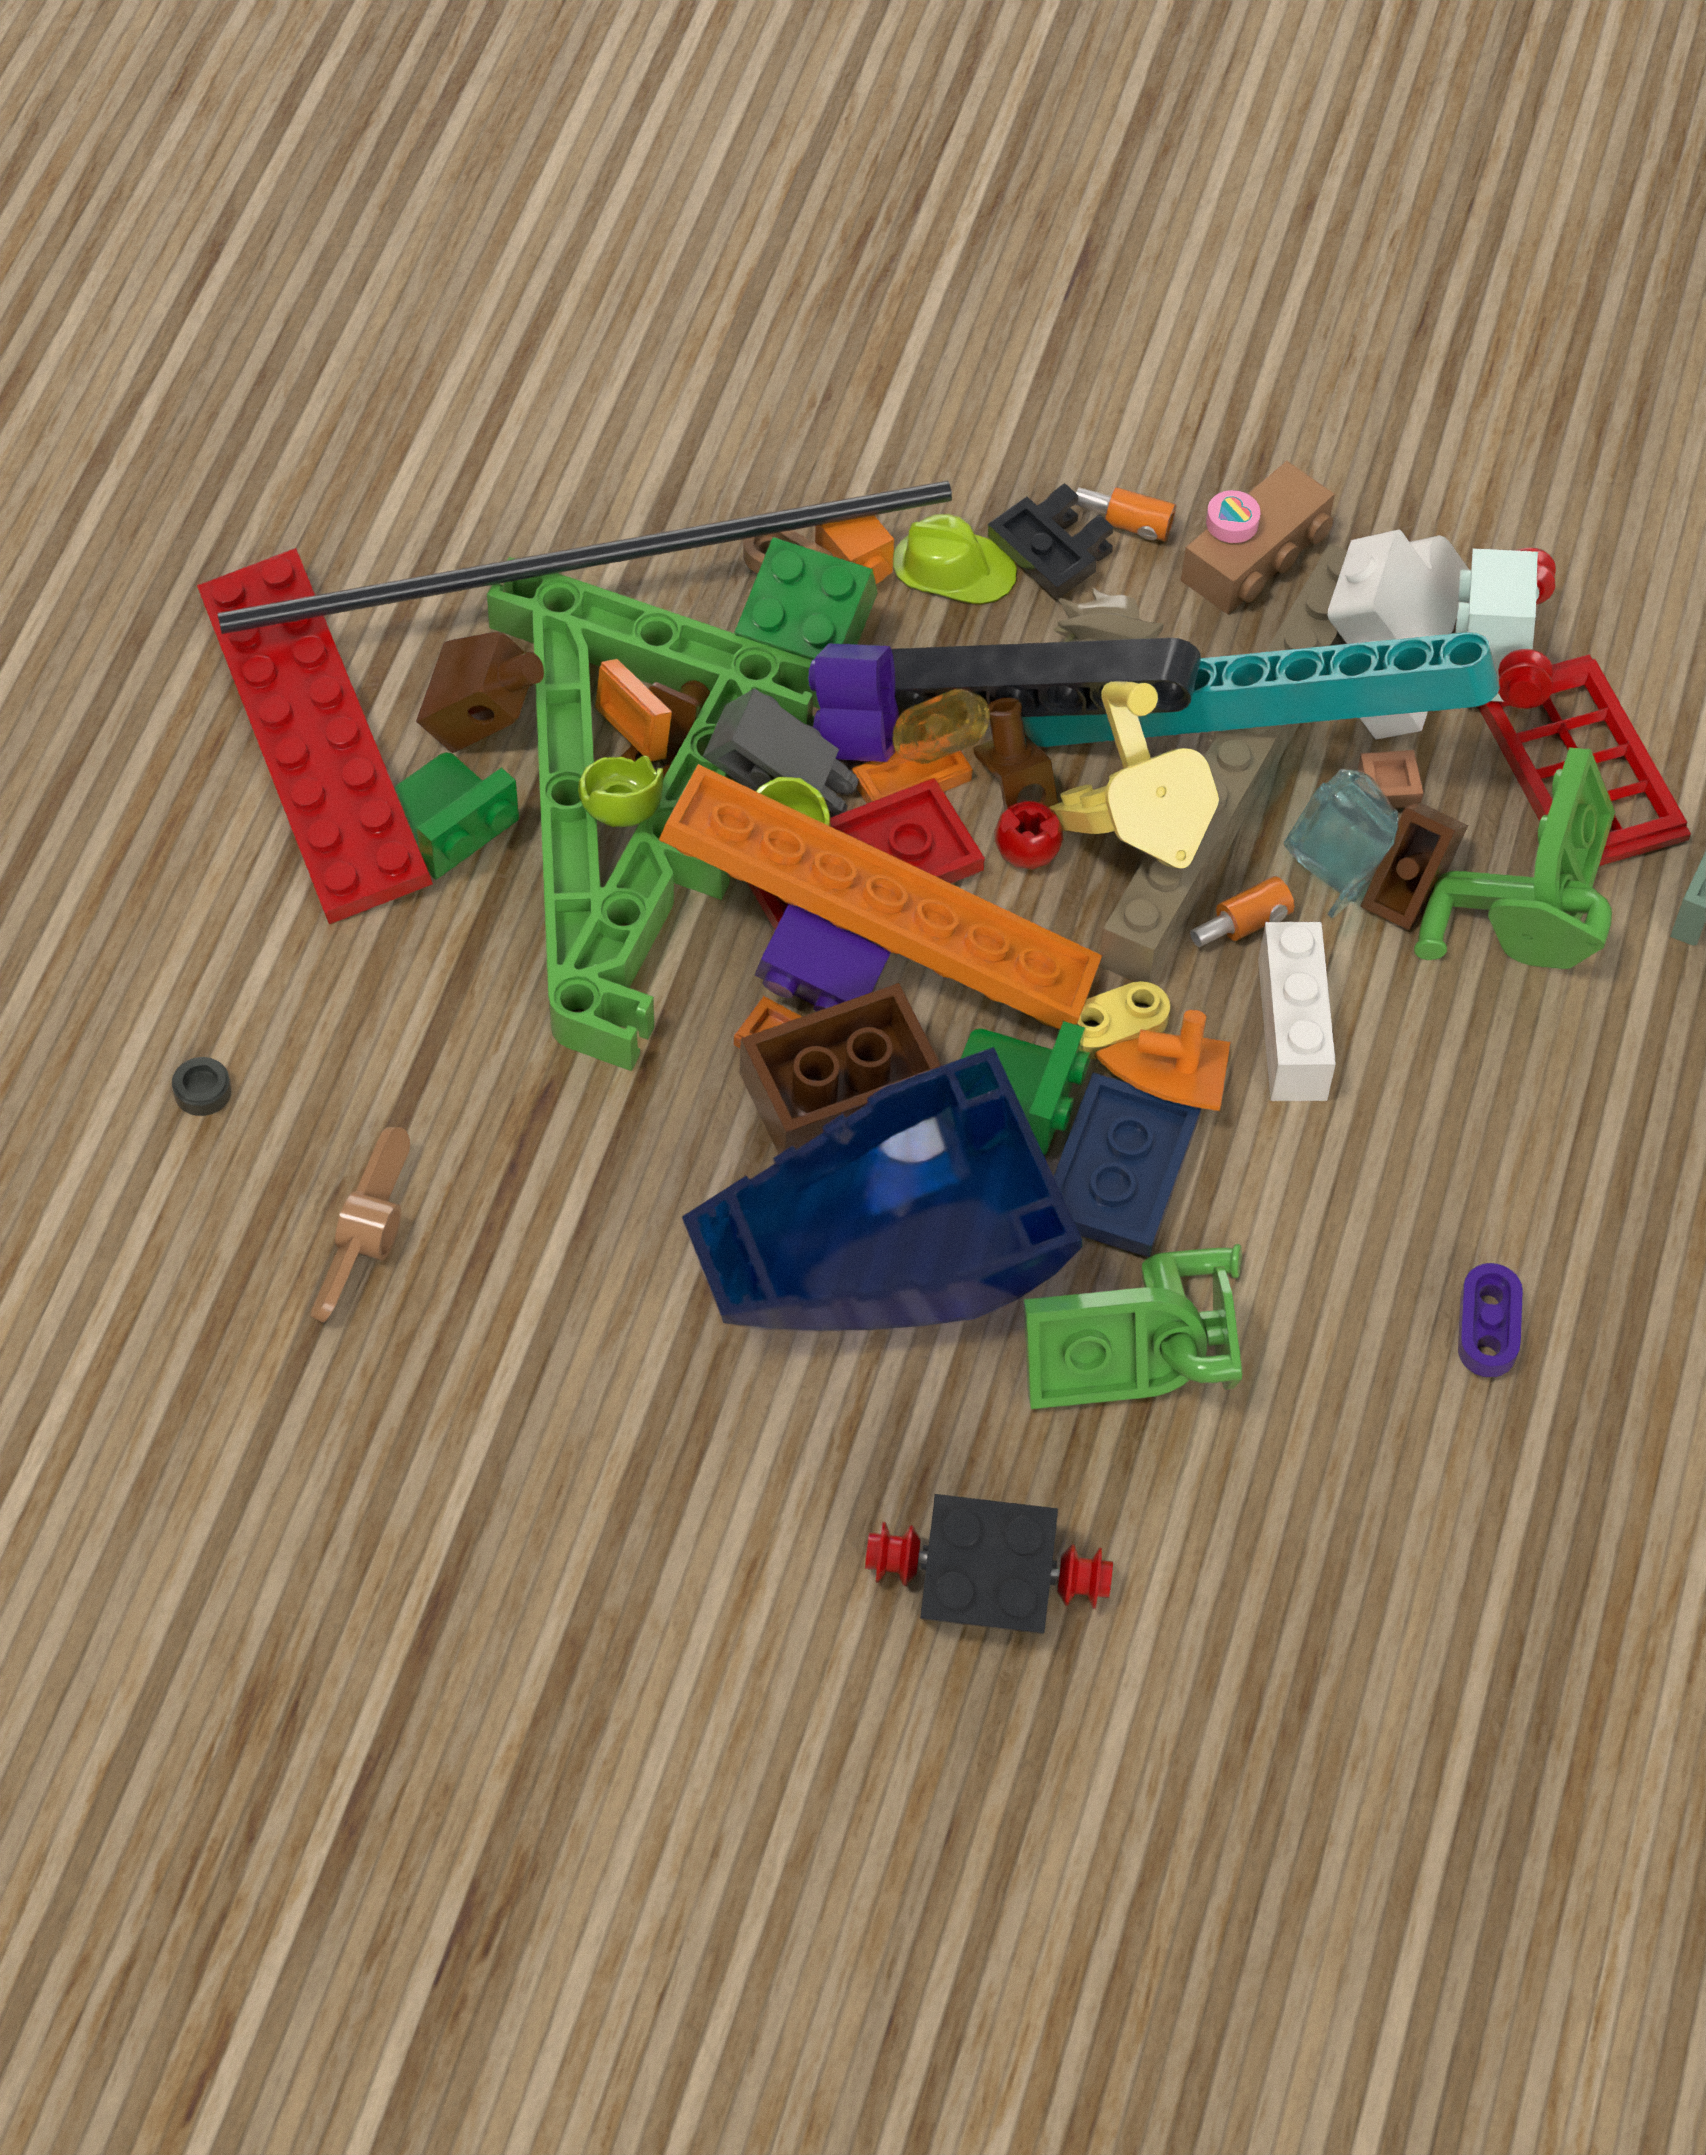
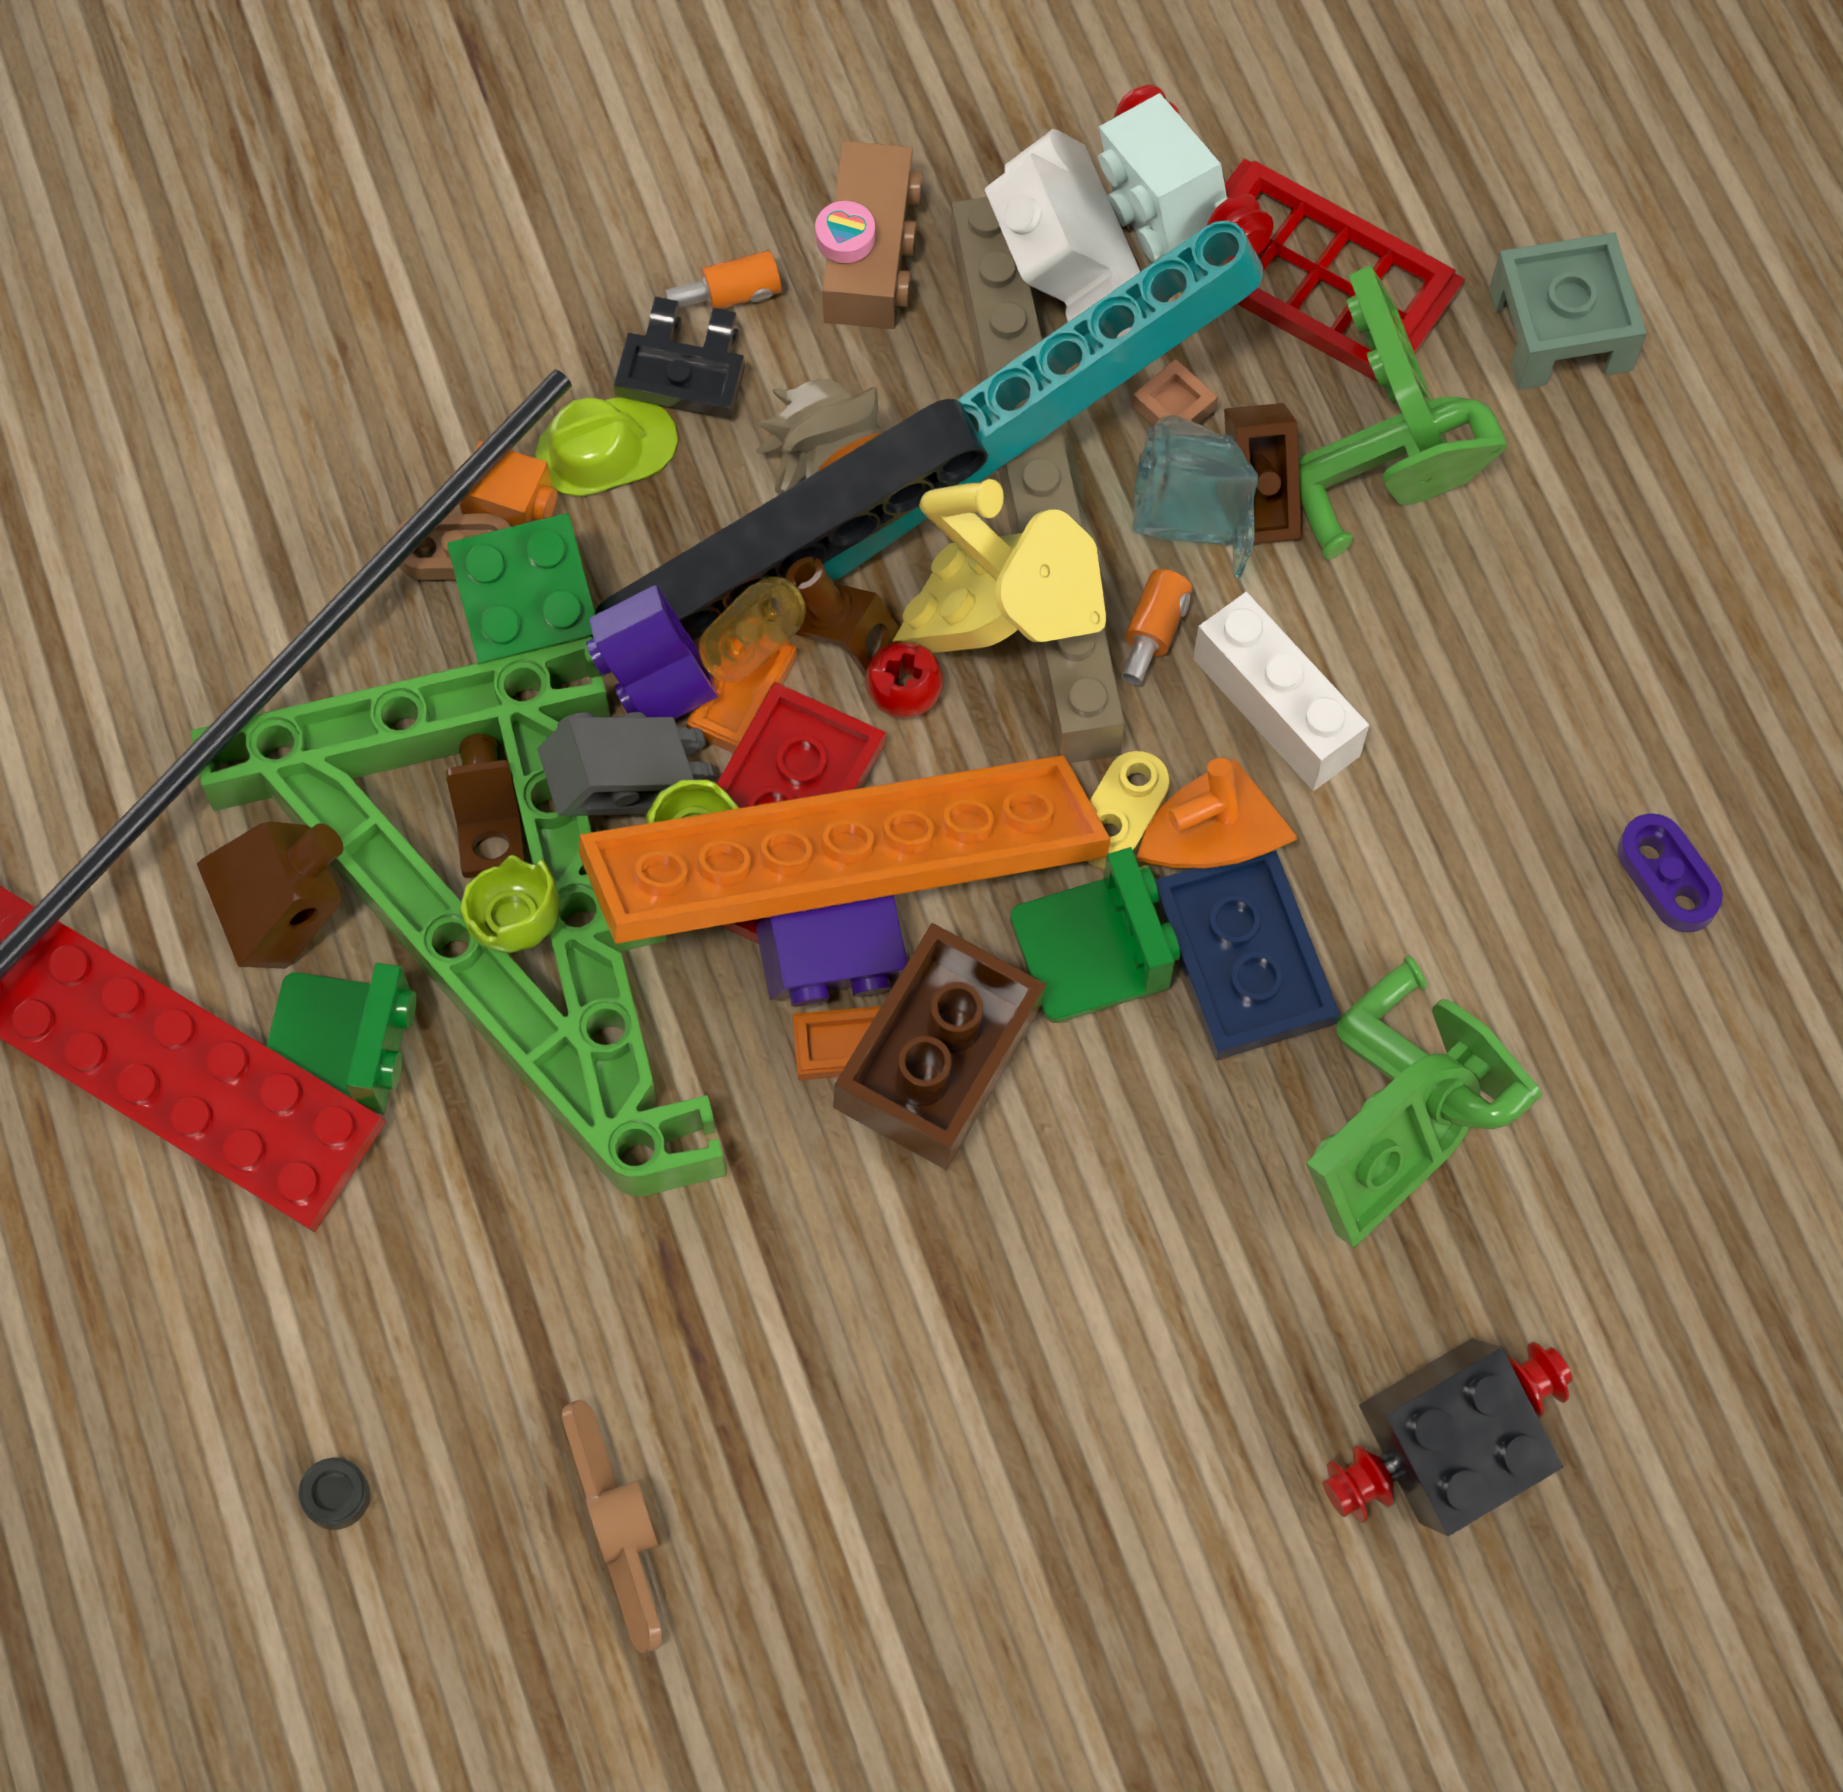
camera: 35 degrees left, 10 degrees up
(633, 709) = (440, 808): orange tile -> none
(892, 1215) = (1121, 1161): clear blue windscreen -> none

